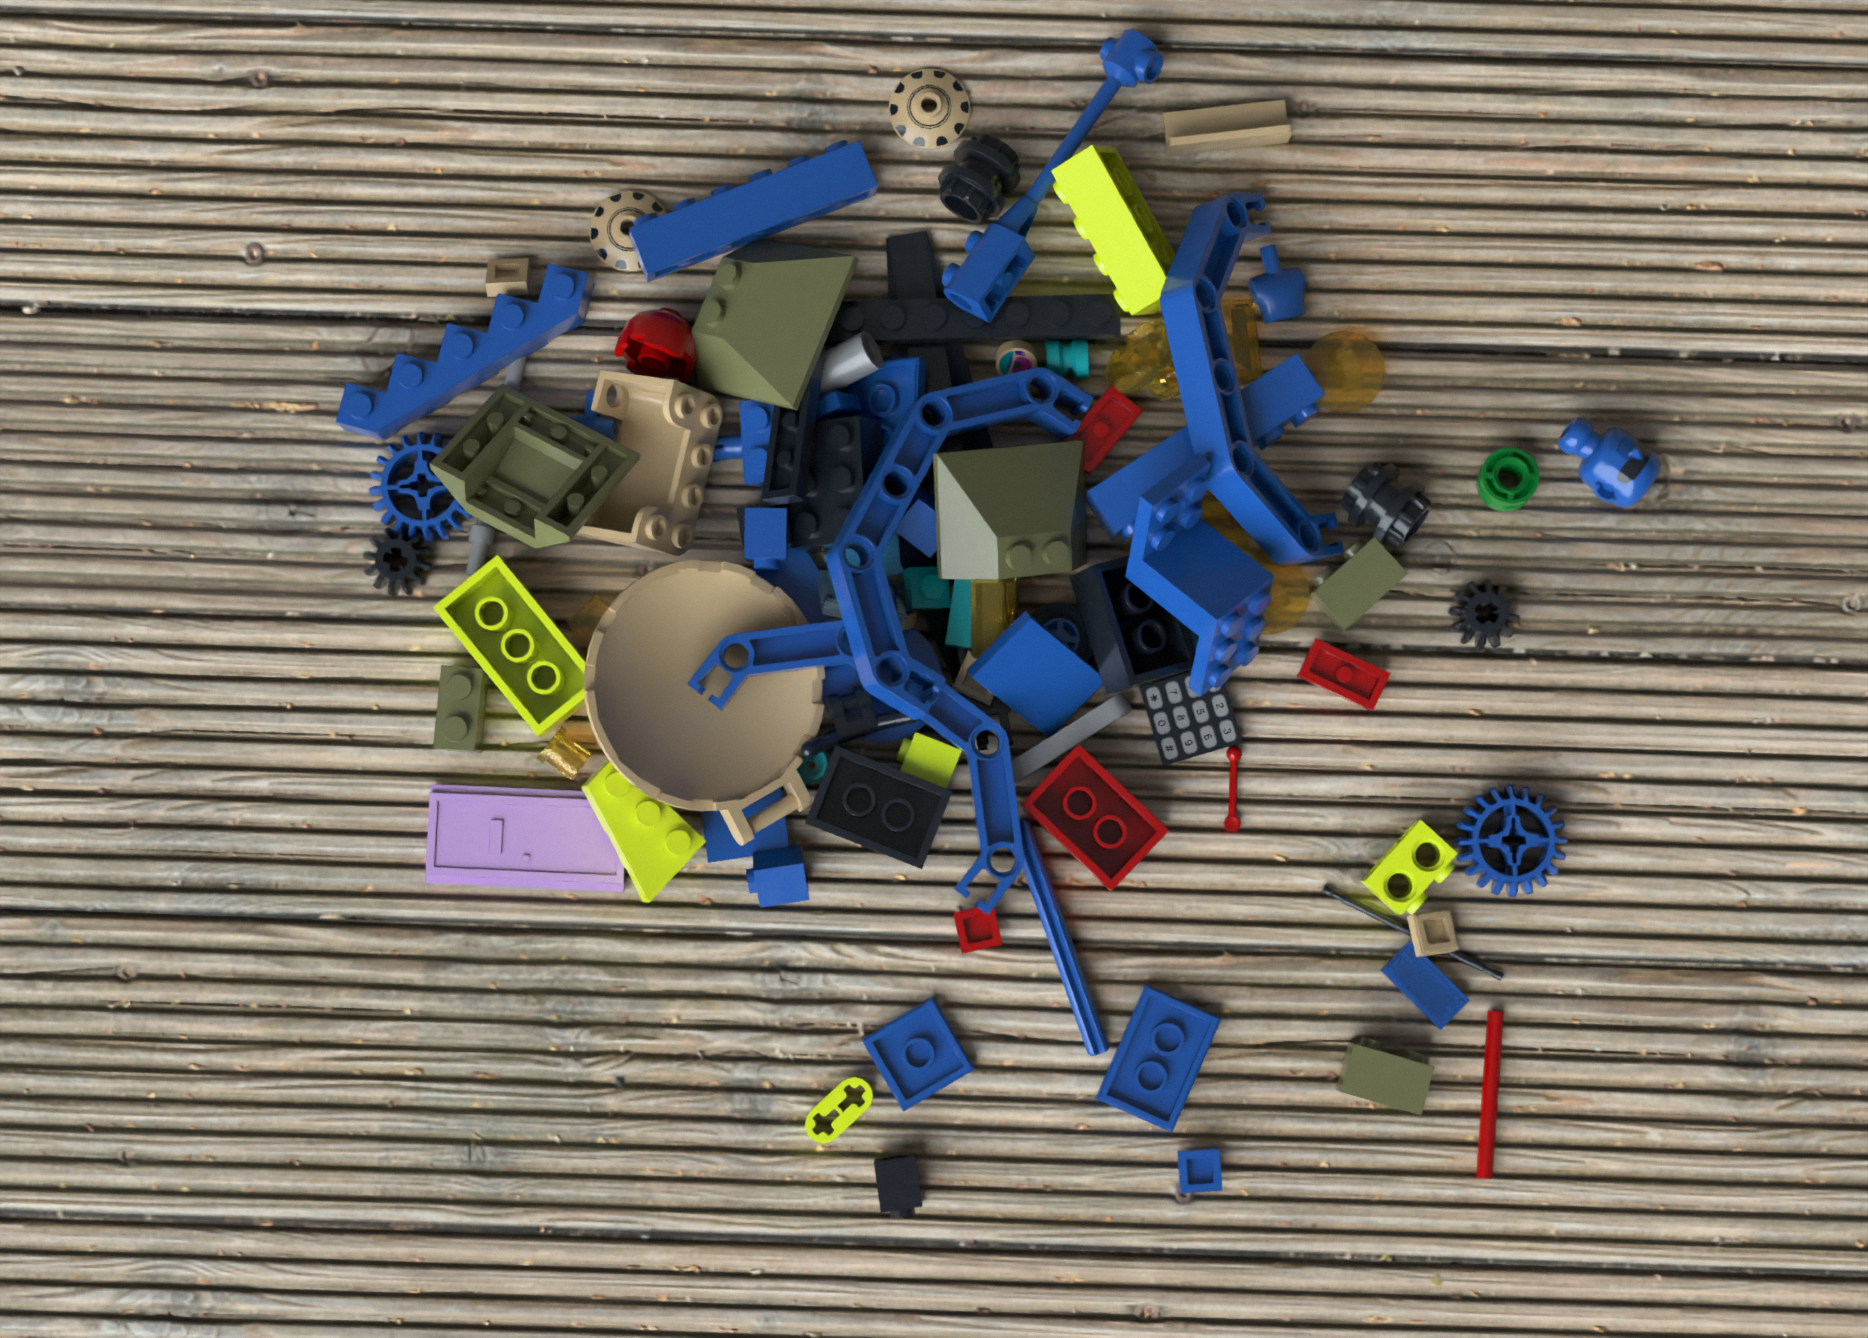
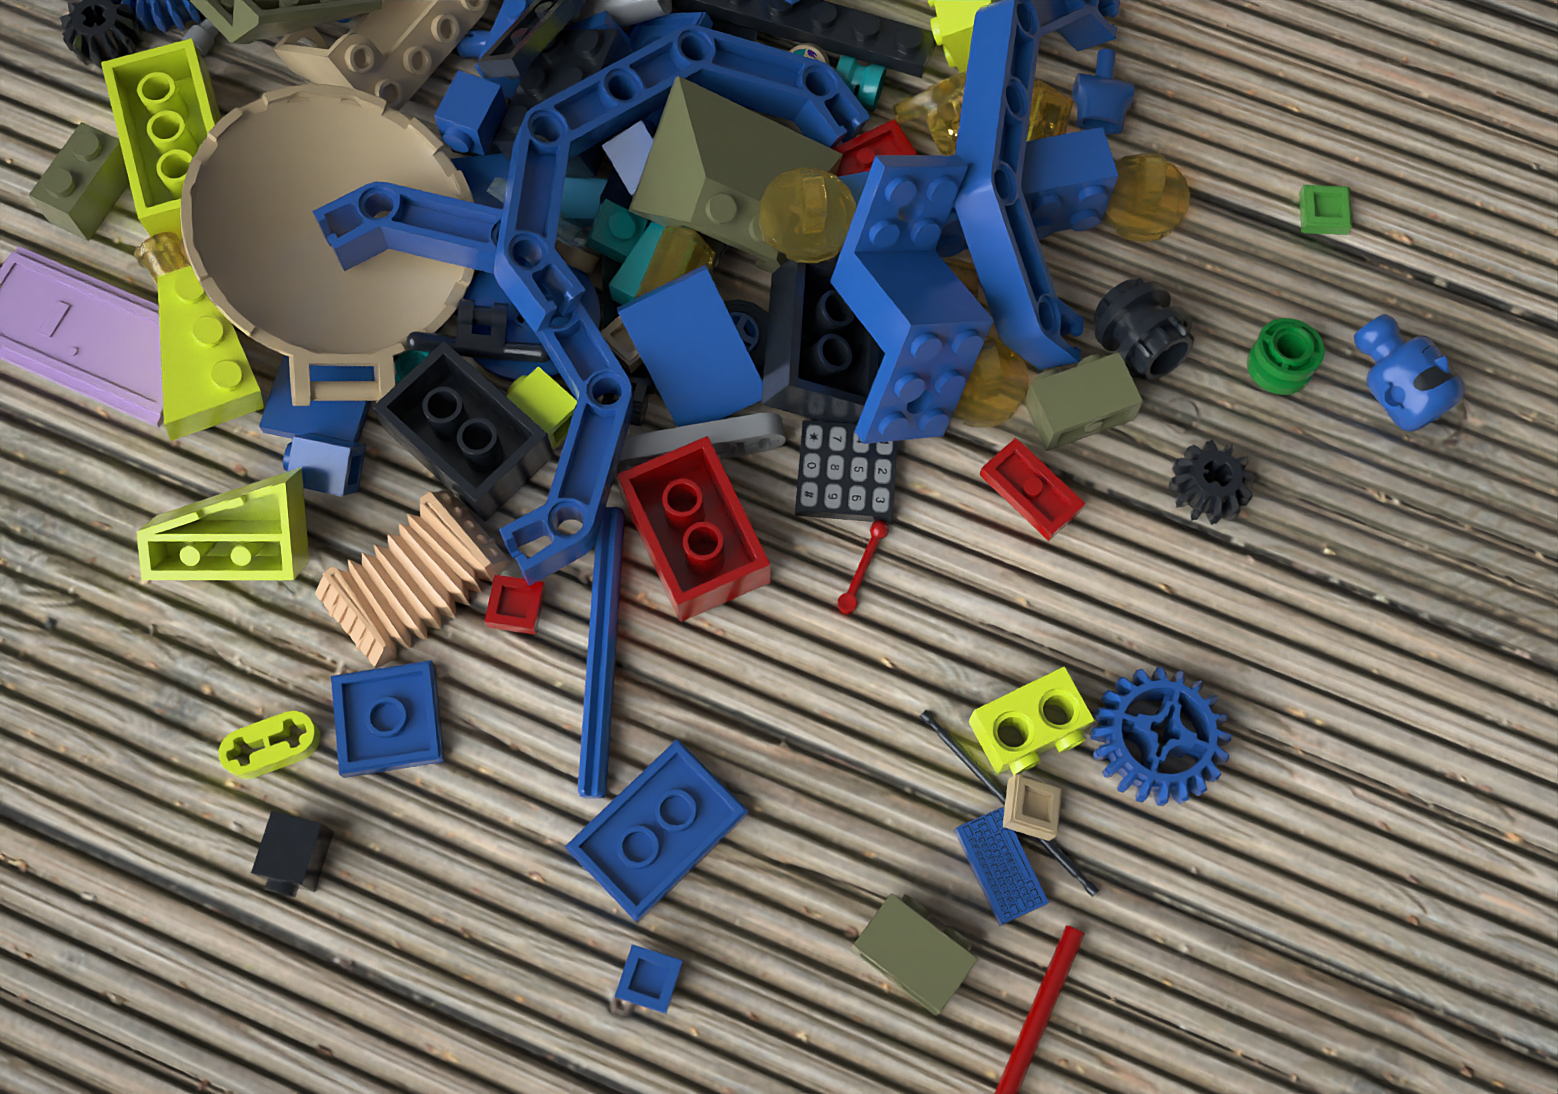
camera: 15 degrees right, 15 degrees down
(737, 965) = (231, 536): none -> neon yellow wedge
(891, 940) = (412, 578): none -> light nougat piece
(1089, 534) = (806, 214): none -> clear yellow tile
(1499, 323) = (1325, 209): none -> bright green tile

